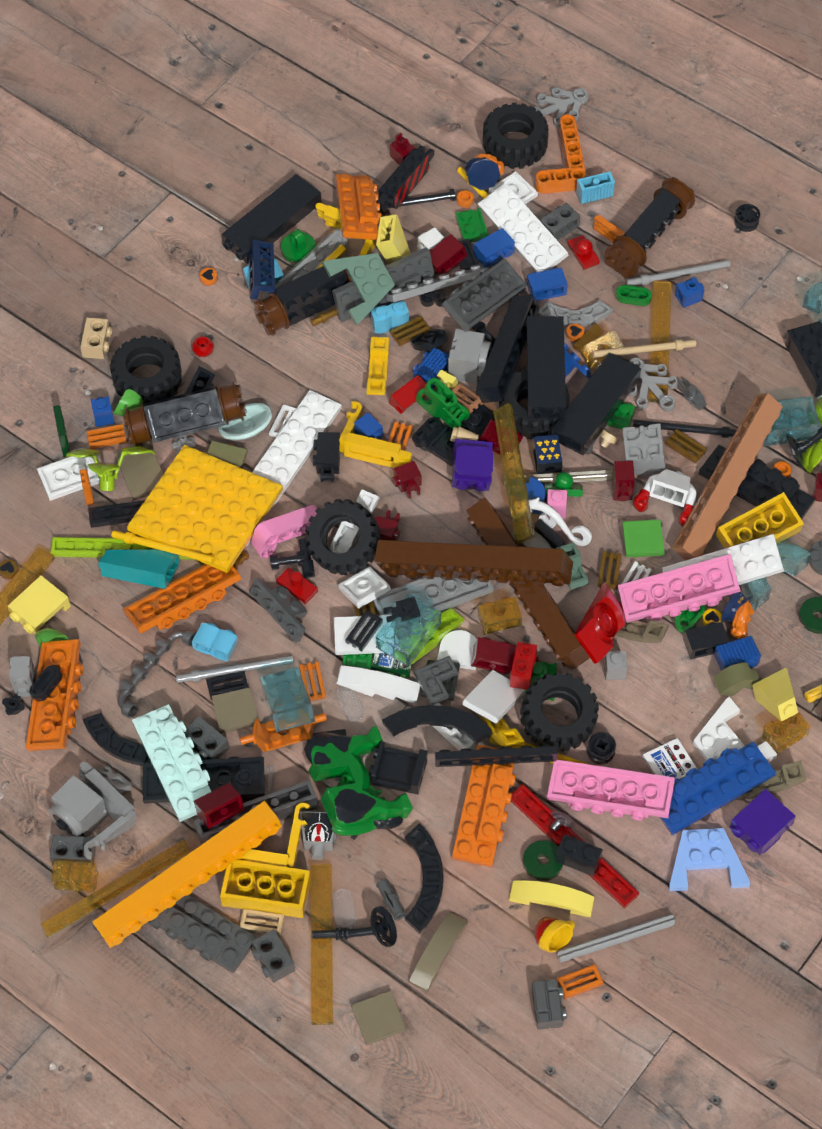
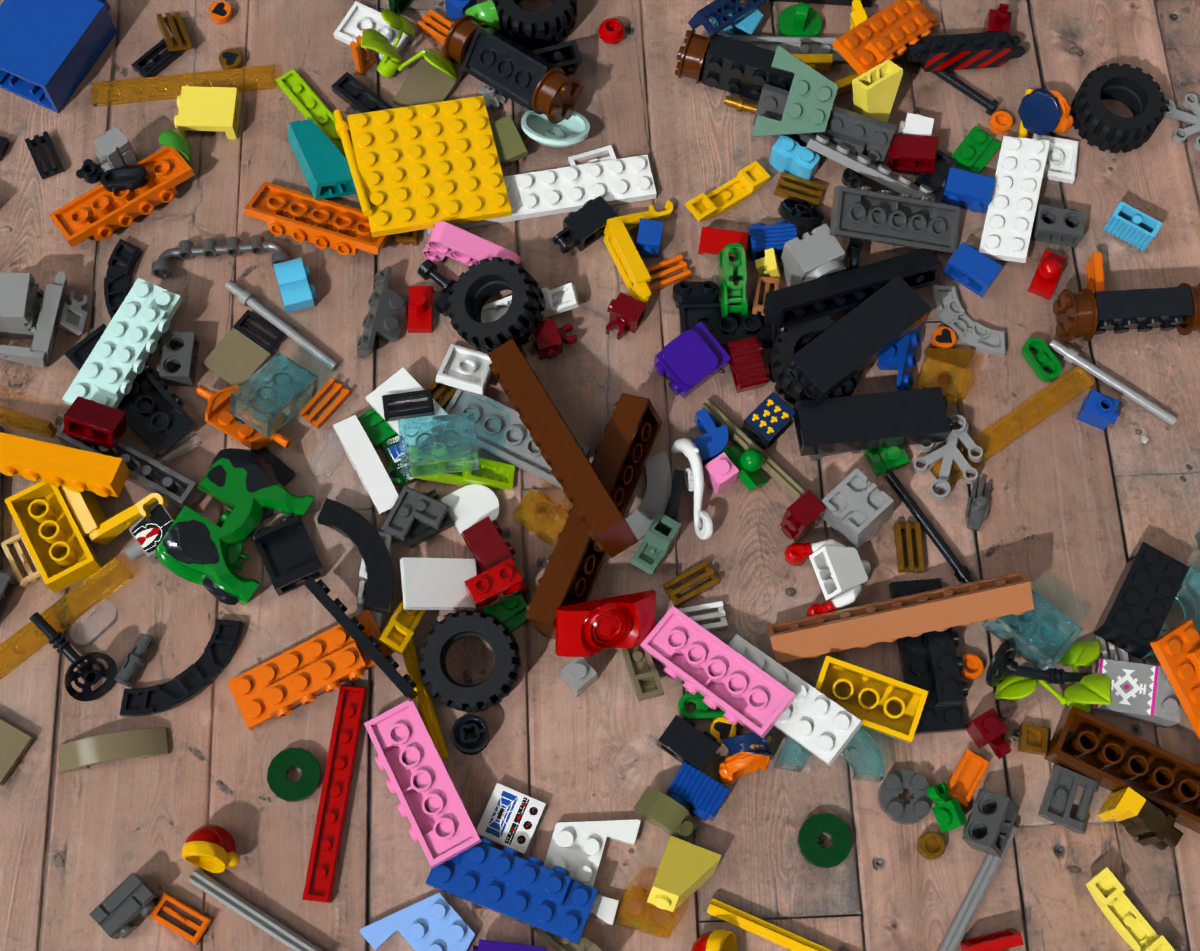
camera: 45 degrees right, 10 degrees up
(405, 609) = (446, 423): black plate -> none
(461, 433) = (717, 326): tan cone -> none
(514, 474) = (709, 405): clear yellow tile -> none
(552, 895) = (257, 817): light yellow slope -> none
(561, 818) = (350, 760): flat silver piece -> none
(566, 178) = (1112, 189): orange beam -> none
(579, 855) = (316, 808): black brick -> none
(608, 437) = (846, 463): tan tile -> none
(643, 538) = (756, 588): bright green tile -> none
(676, 345) = (1021, 445): tan bar -> none

